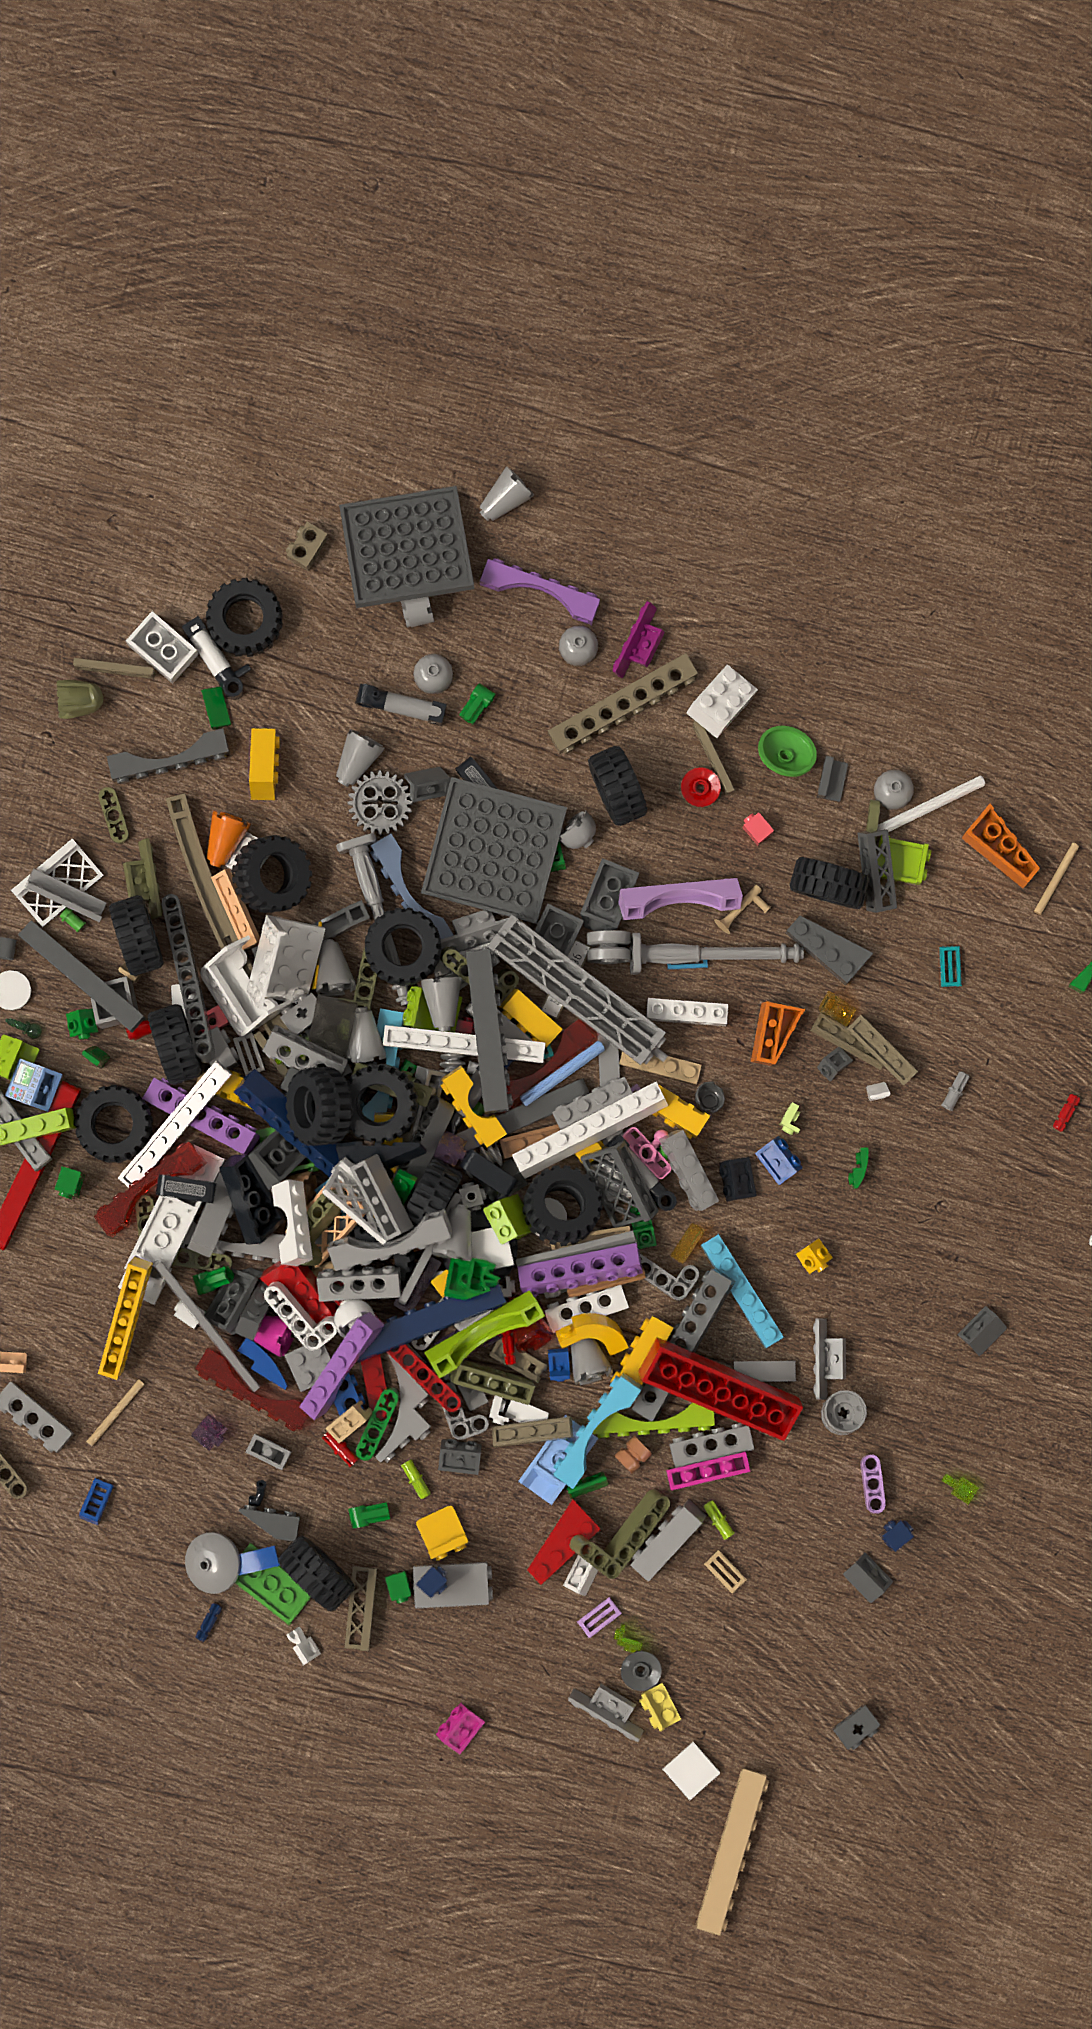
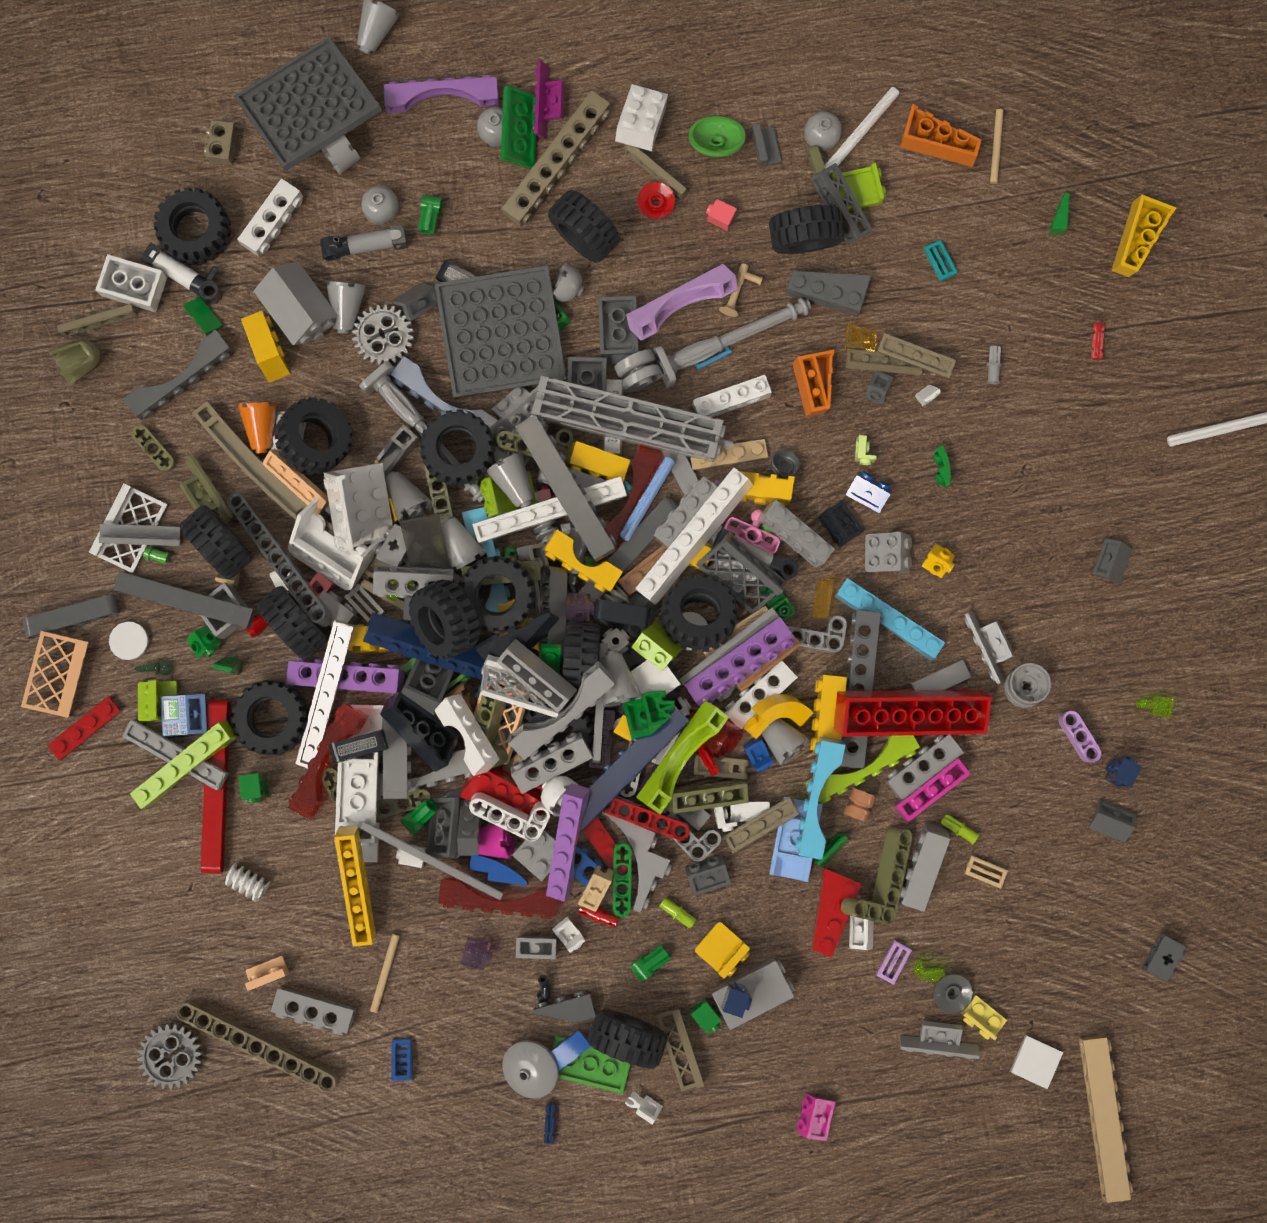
camera: 20 degrees left, 0 degrees up
(23, 1269) = (246, 883): none -> white piece
(304, 1453) = (569, 934): none -> white bracket
(310, 738) = (295, 303): none -> light grey brick
(344, 620) = (282, 192): none -> white brick
(598, 658) = (517, 128): none -> green tile
(770, 1227) = (888, 552): none -> light grey bracket

